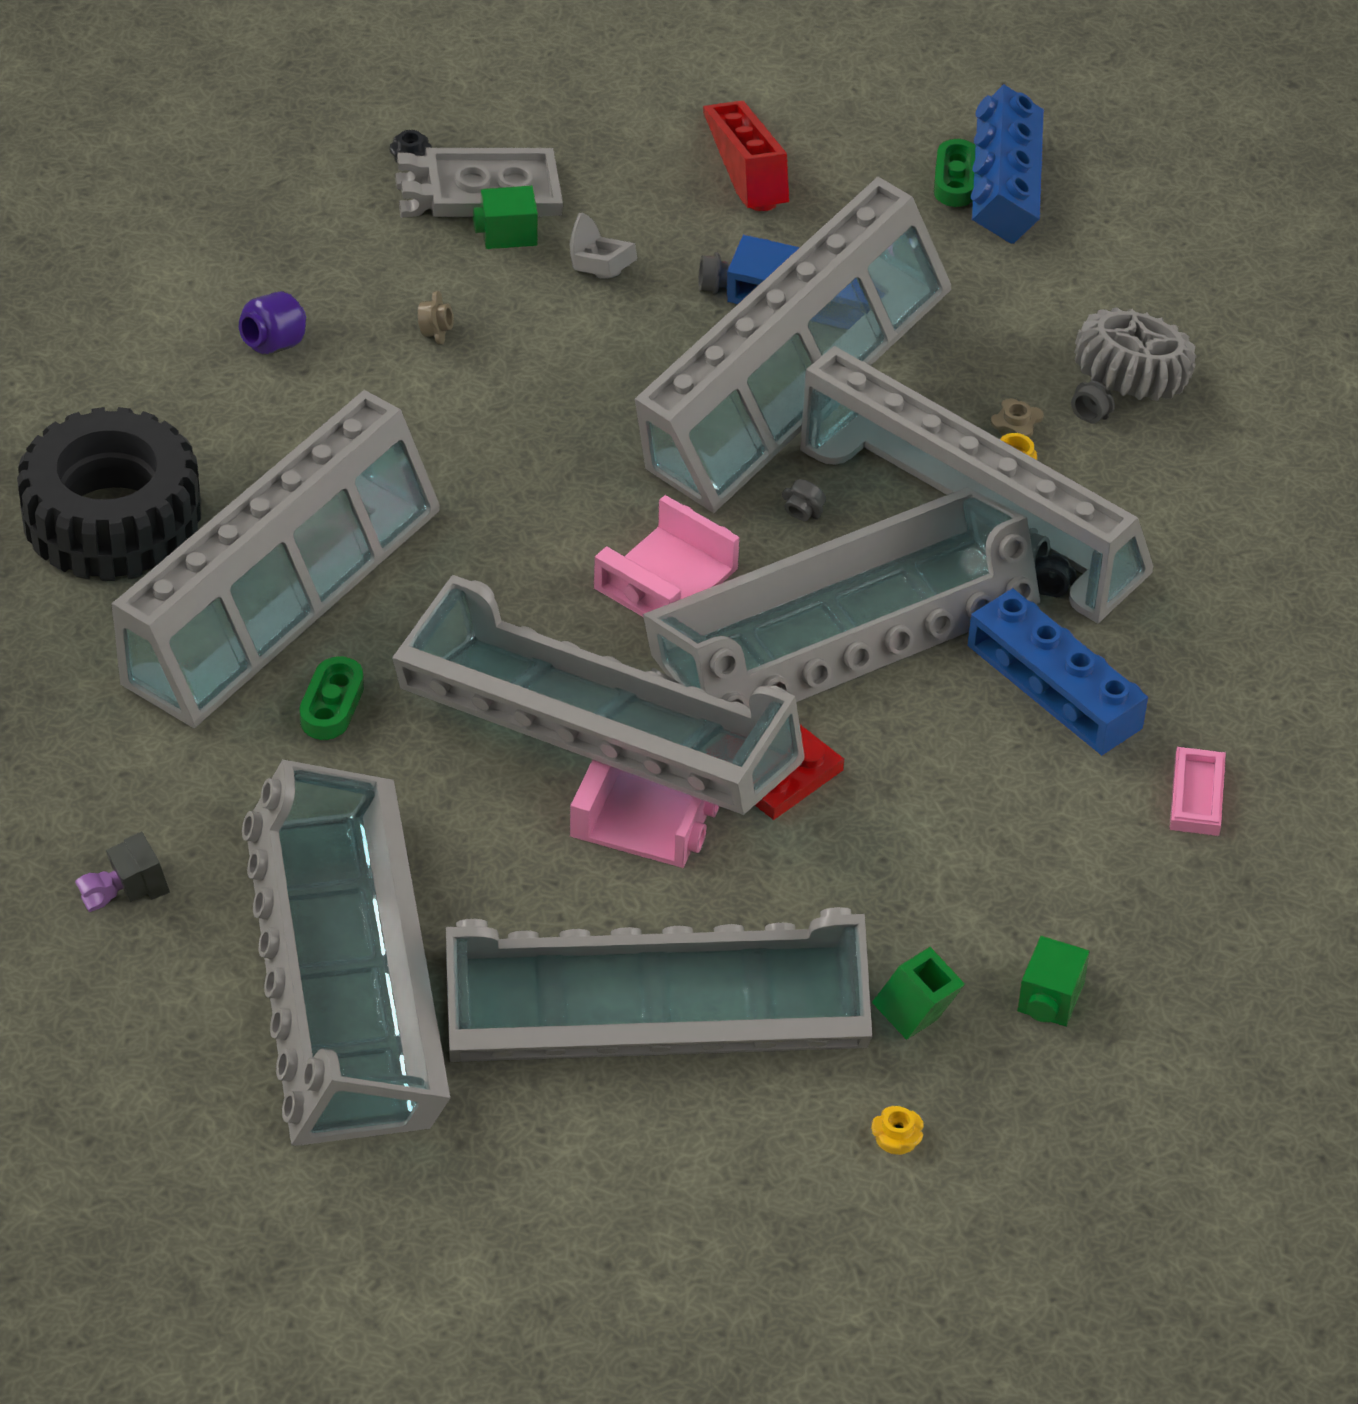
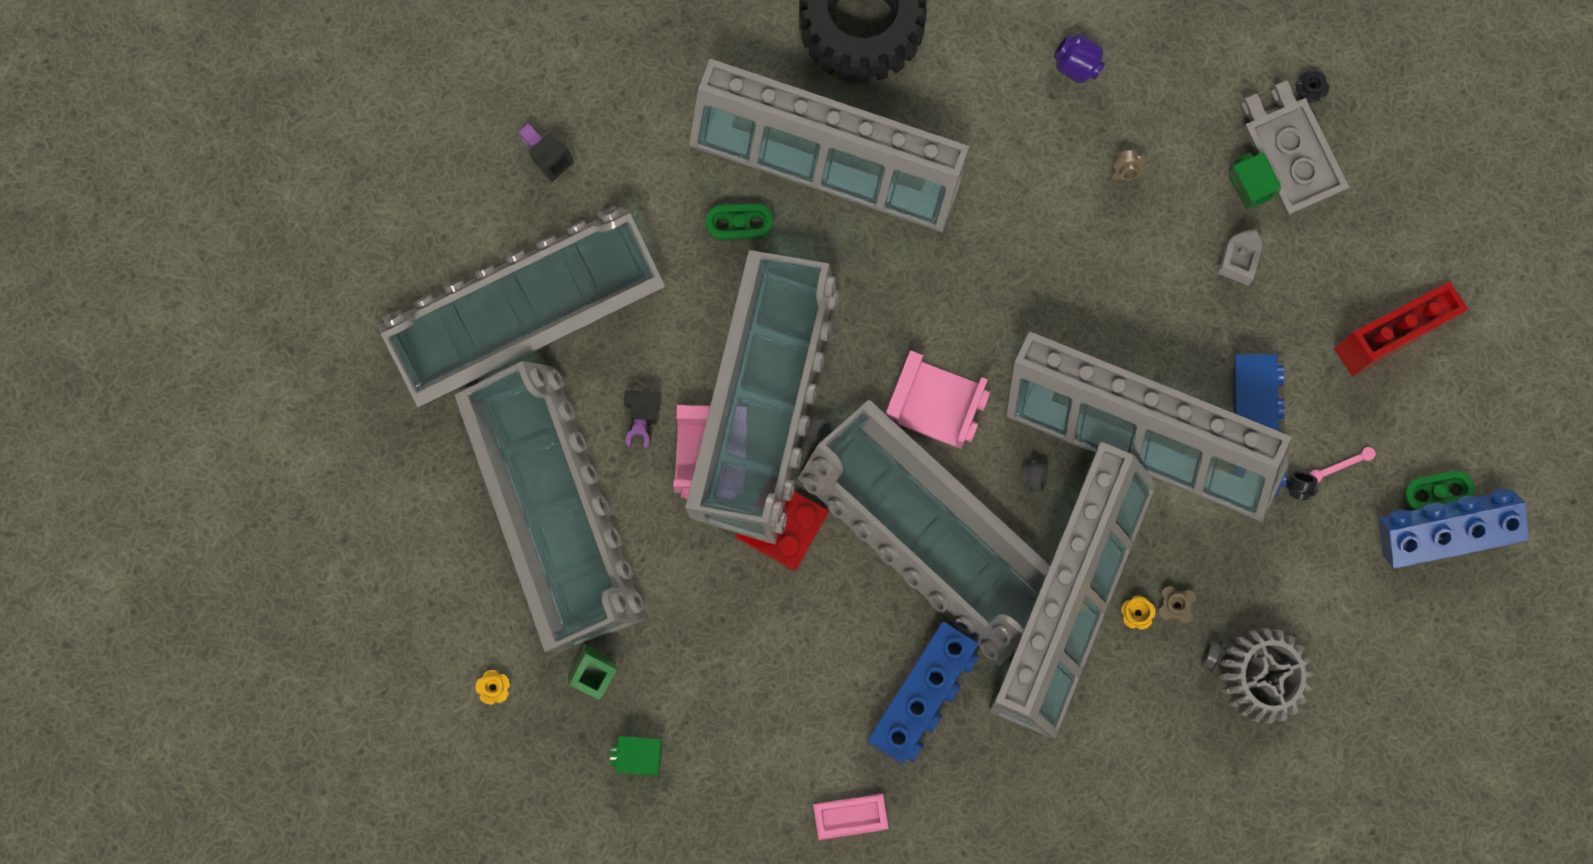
camera: 75 degrees right, 30 degrees up
(555, 859) = (644, 411): none -> pearl dark grey piece
(712, 273) = (1253, 344): dark grey plate -> none

